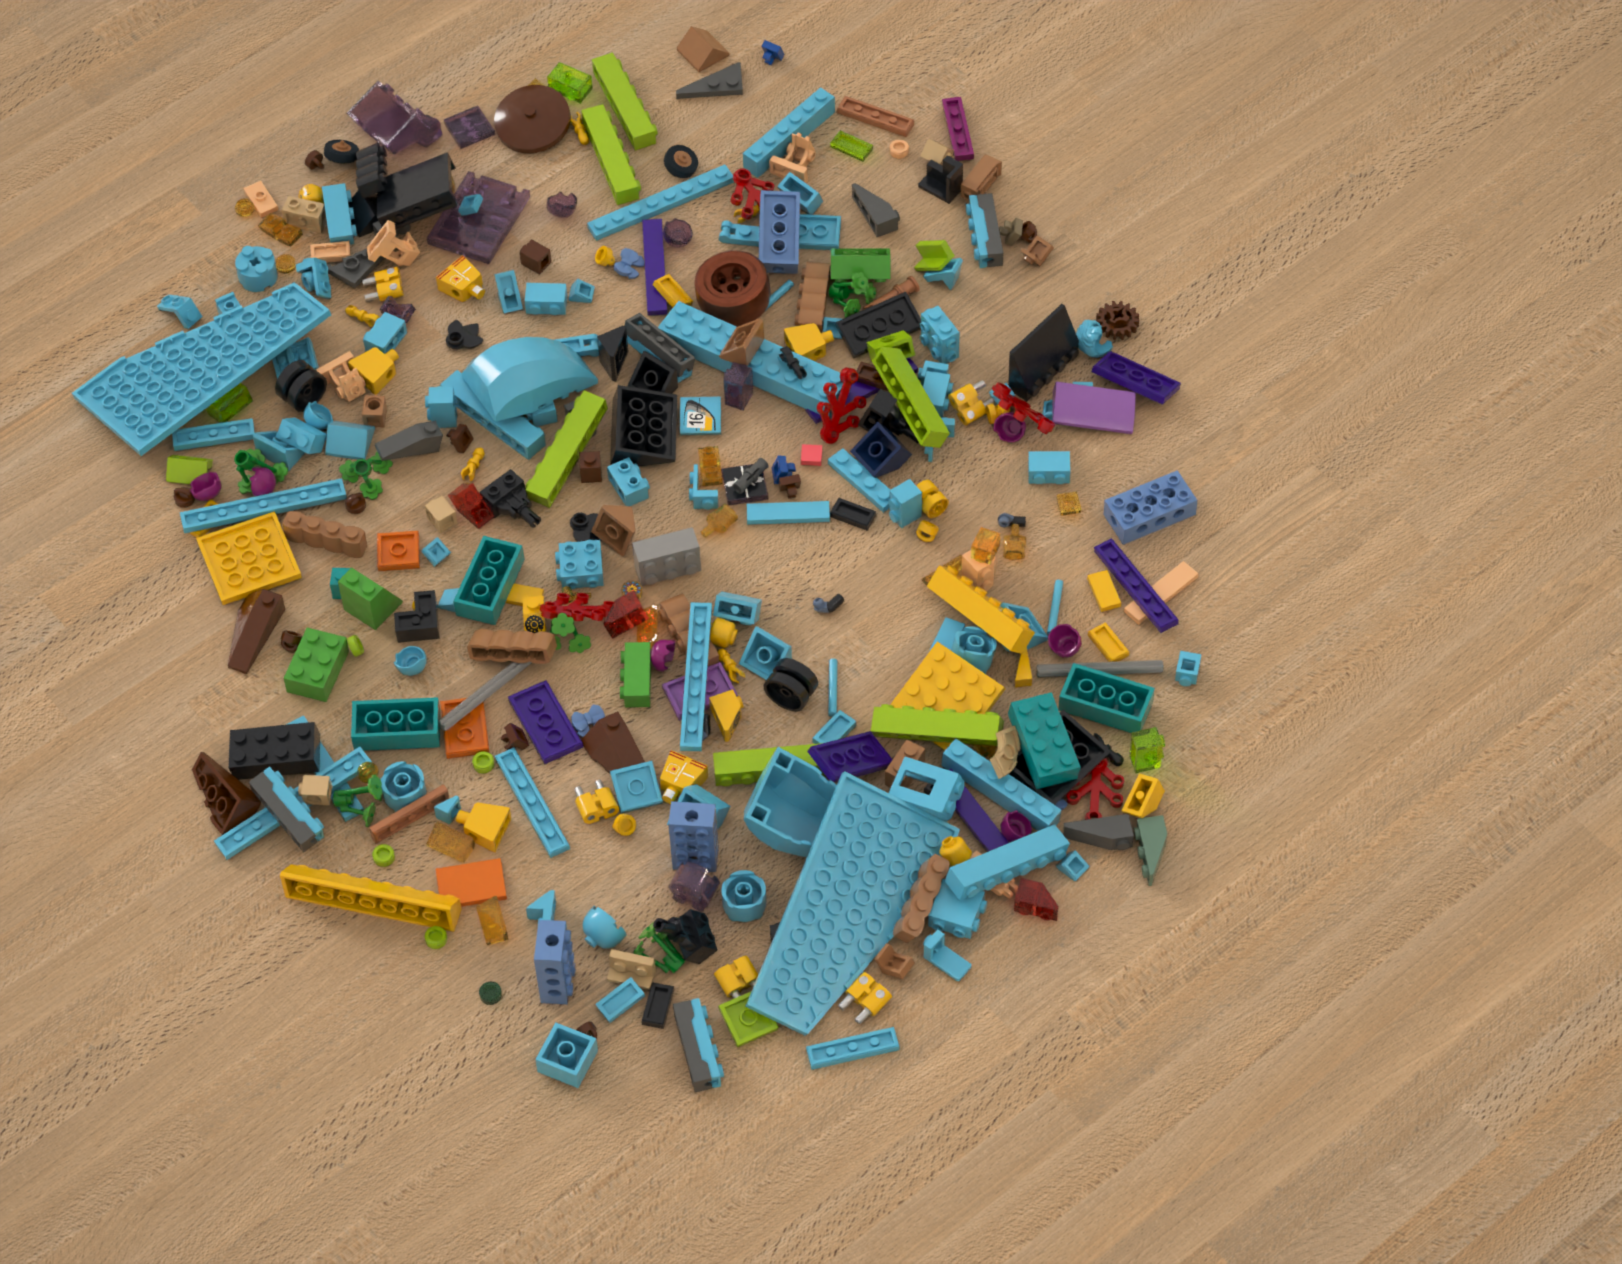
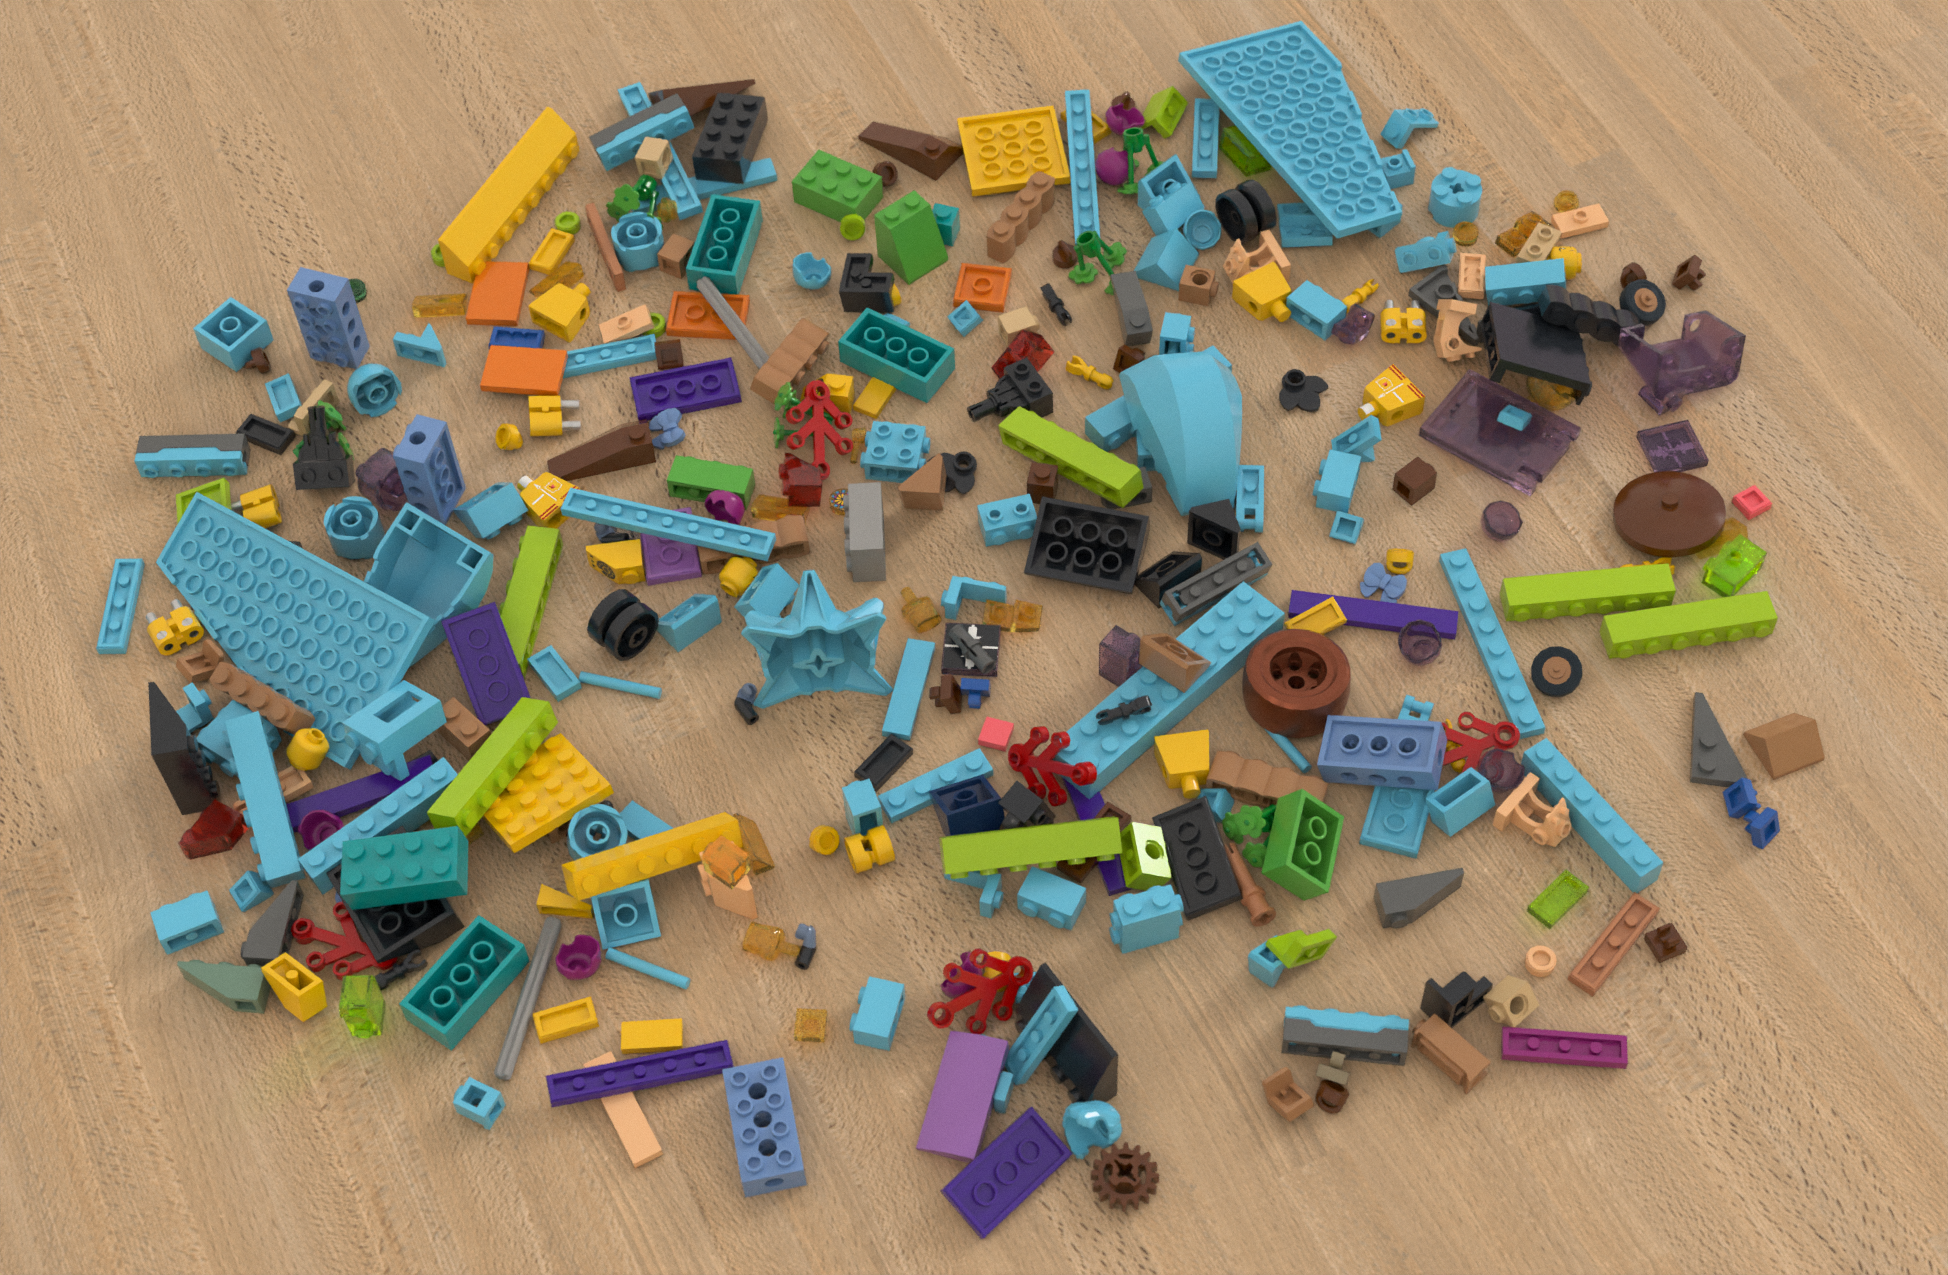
camera: 105 degrees right, 0 degrees up
(305, 131) = (1689, 273): none -> reddish brown tile
(409, 497) = (1056, 304): none -> black piece
(411, 755) = (675, 255): none -> medium nougat brick
(417, 857) = (551, 251): none -> yellow tile
(447, 810) = (594, 280): medium azure slope -> none
(492, 775) = (627, 325): none -> light nougat plate
(507, 82) = (1751, 502): none -> coral tile
(523, 850) = (517, 337): none -> blue plate
(556, 830) = (524, 370): none -> orange tile
(636, 787) = (554, 453): medium azure tile -> none
(700, 415) = (1094, 616): slope -> none
(730, 665) = (679, 584): yellow piece -> none
(753, 63) = (1740, 798): none -> blue tile
(773, 173) = (1501, 770): none -> hair
(791, 539) = (817, 646): none -> medium azure piece
(867, 91) = (1665, 942): none -> reddish brown tile
(932, 367) = (1092, 906): medium azure bracket -> none
(968, 404) = (1020, 933): yellow piece -> none
(994, 917) = (178, 756): none -> black slope
(1007, 751) = (399, 818): tan tile -> none
(1048, 355) = (1040, 1034): none -> medium azure plate
(1113, 890) = (186, 922): none -> medium azure brick

